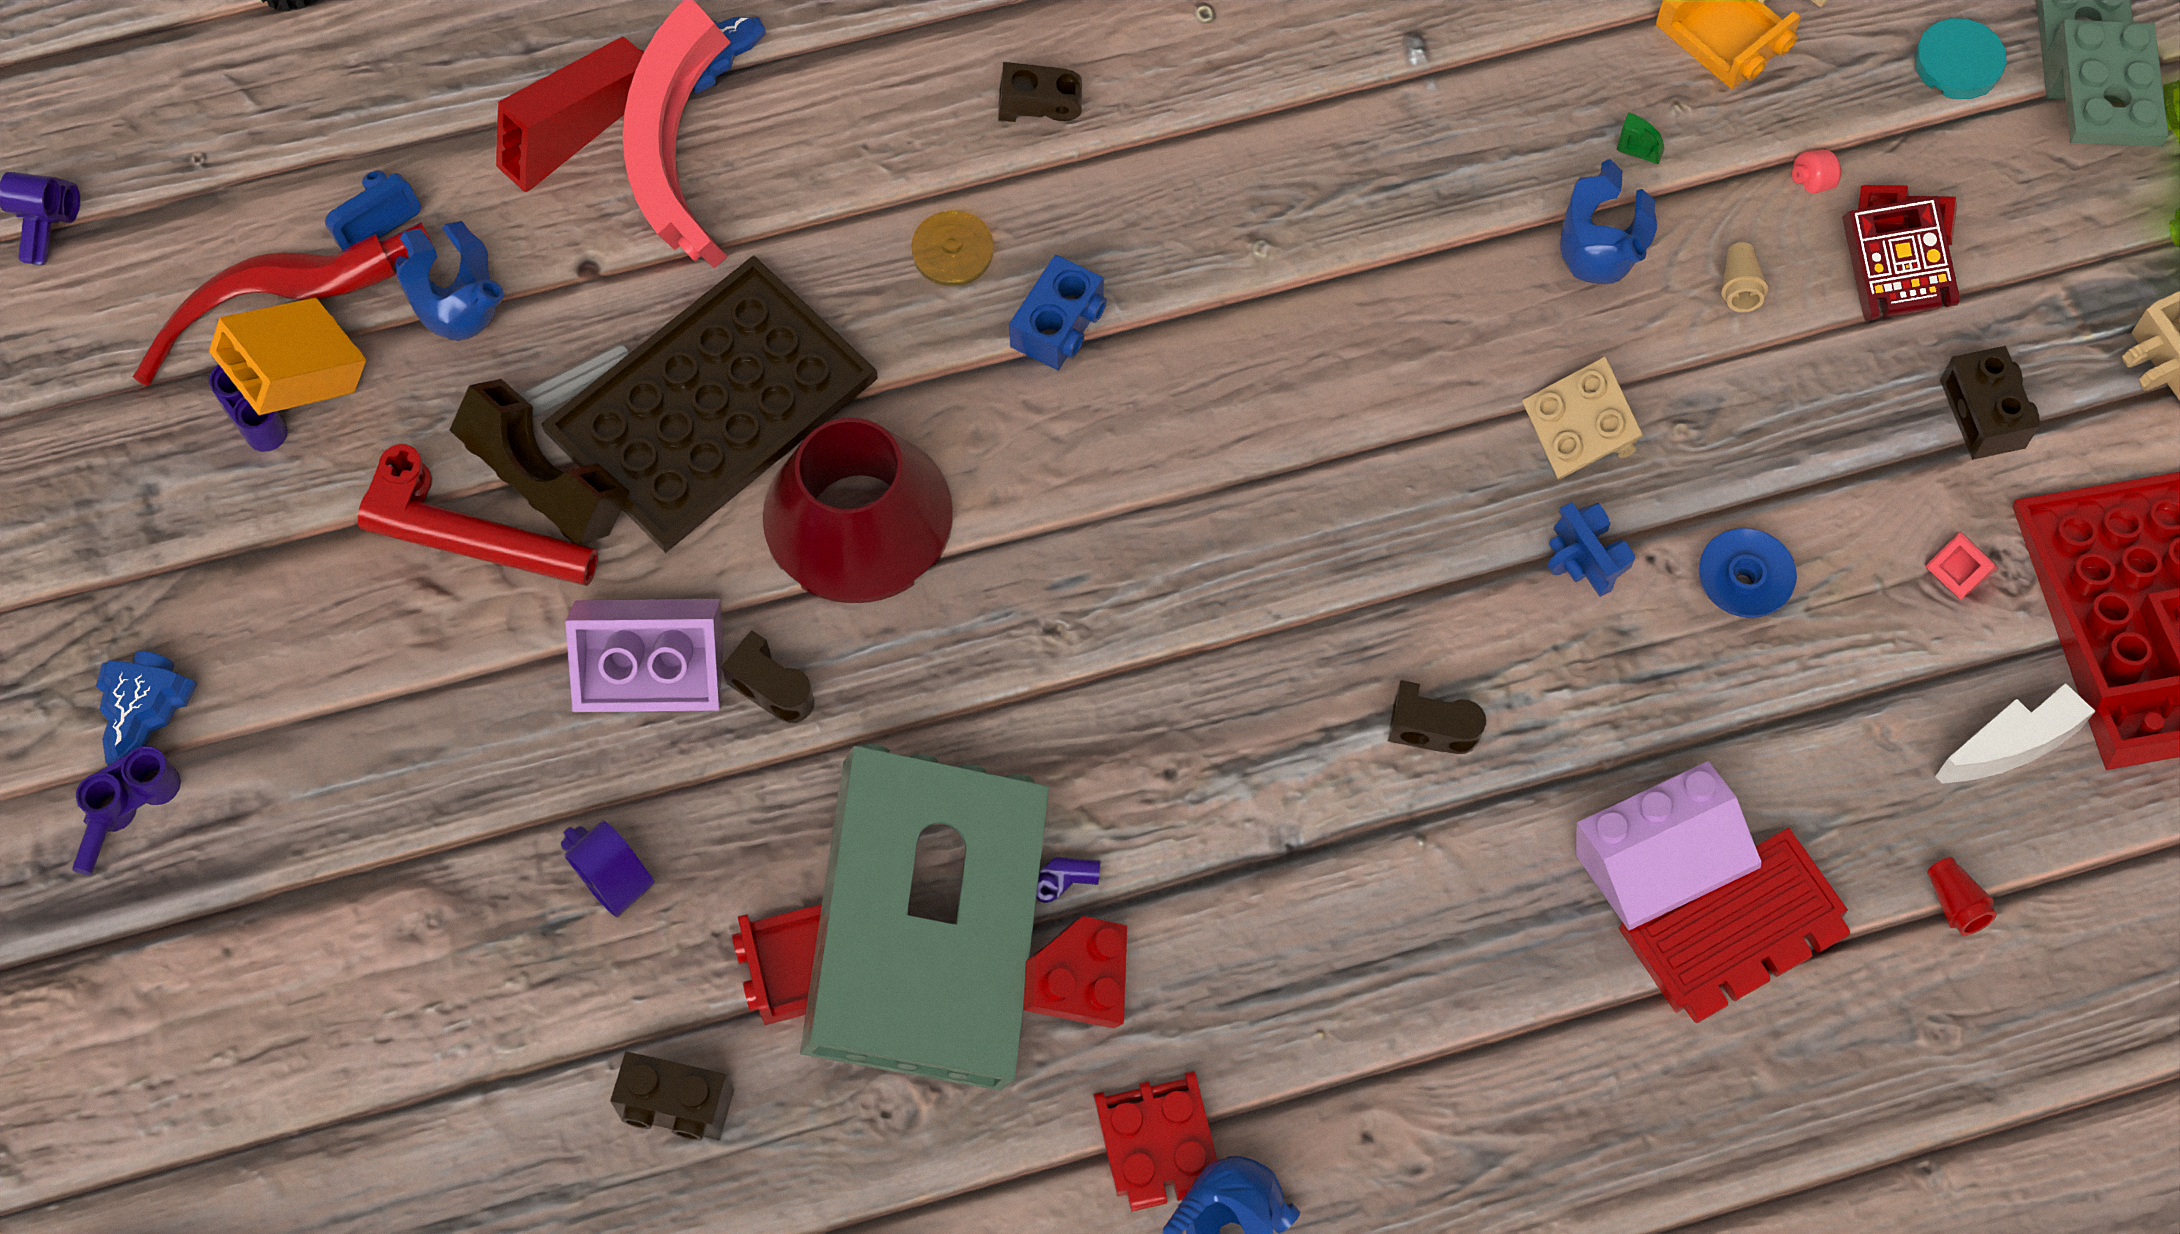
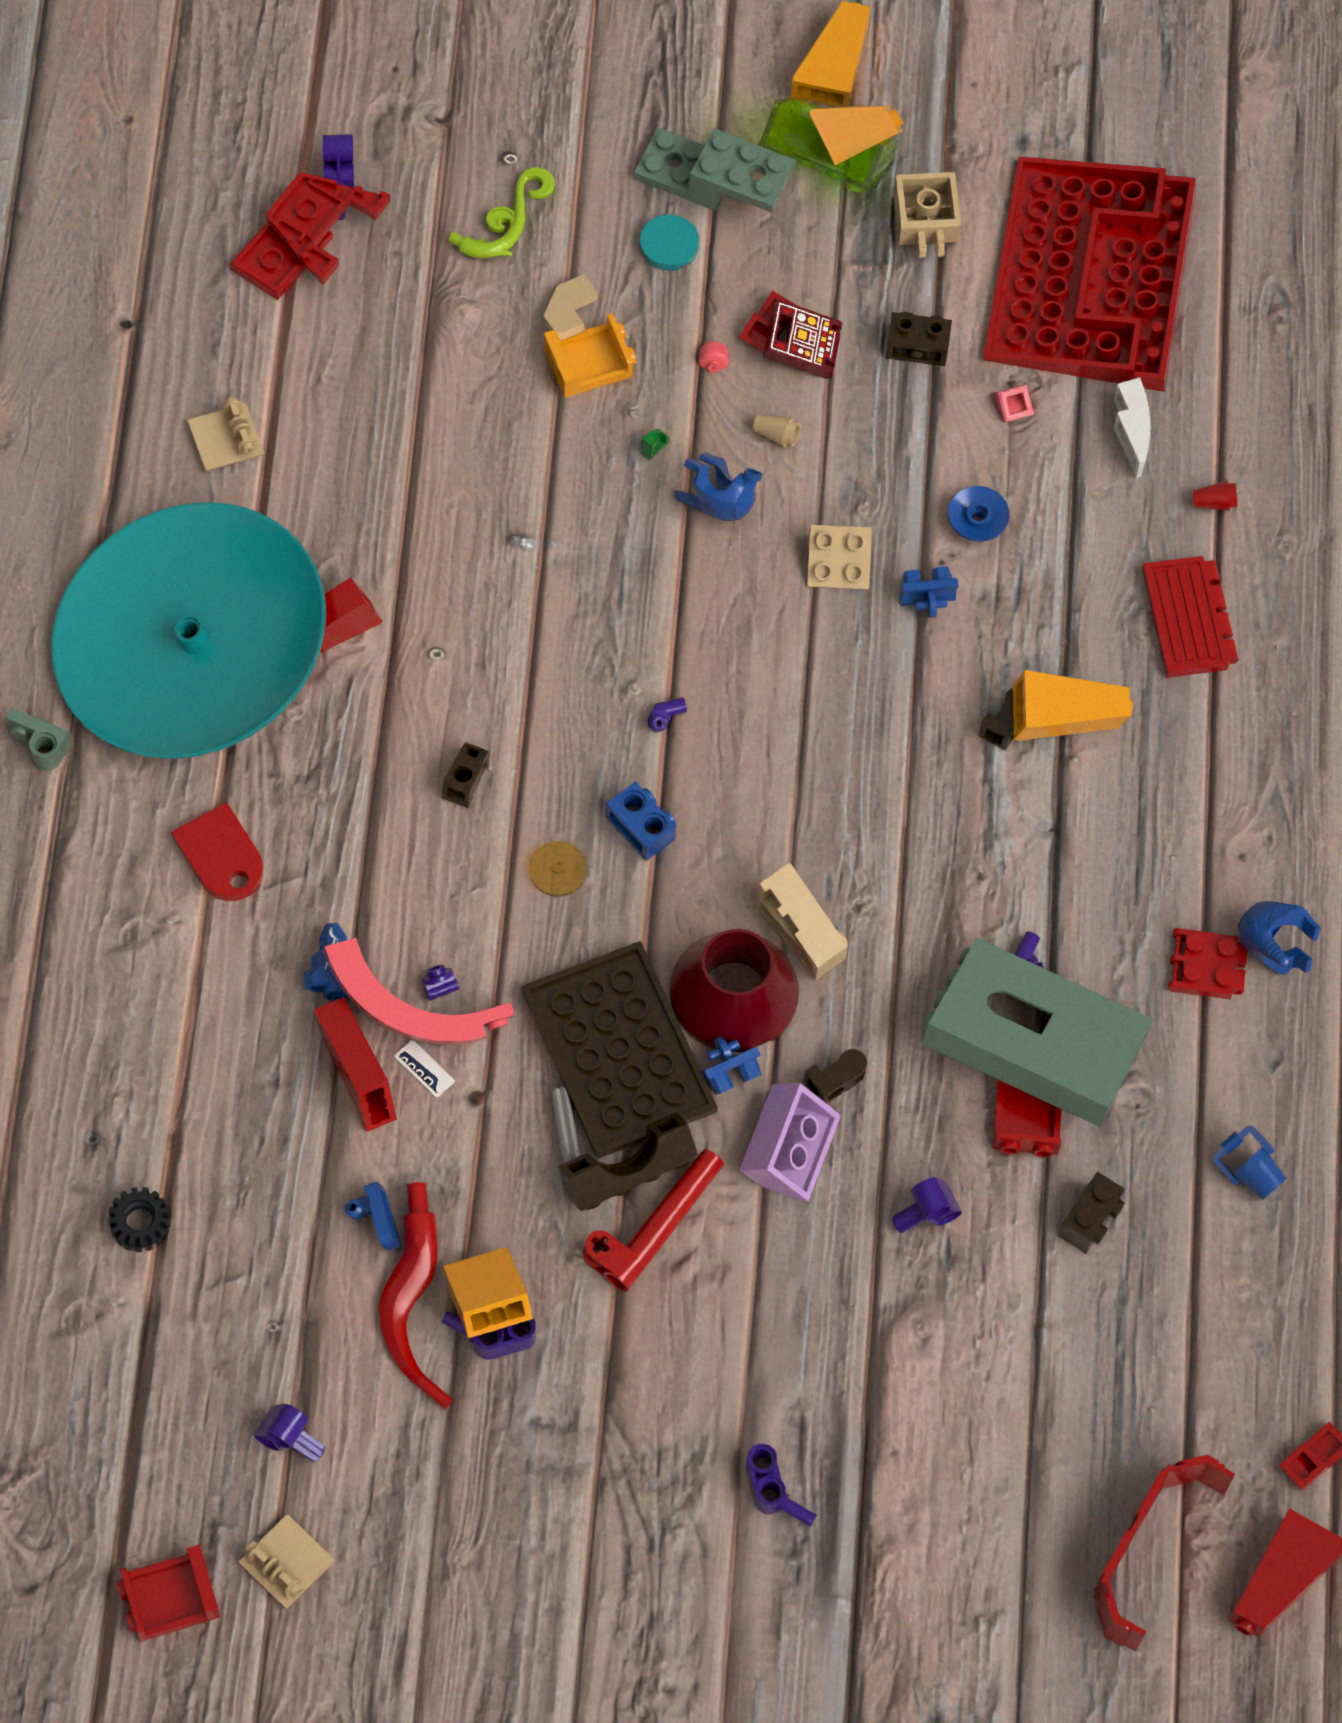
camera: 75 degrees left, 0 degrees up
(139, 700) = (704, 1460): blue rock -> none
(467, 303) = (479, 1181): blue piece -> none
(605, 201) = (424, 1068): none -> white sticker
(716, 530) = (745, 1063): none -> blue hips
(730, 168) = (439, 982): none -> dark purple plate
(983, 553) = (800, 922): none -> tan wedge
(1080, 974) = (1098, 965): red plate -> none
(1236, 287) = (663, 711): none -> dark purple arm
(1482, 788) = (1066, 706): none -> light orange slope
(1667, 845) = (1136, 628): lavender slope -> none

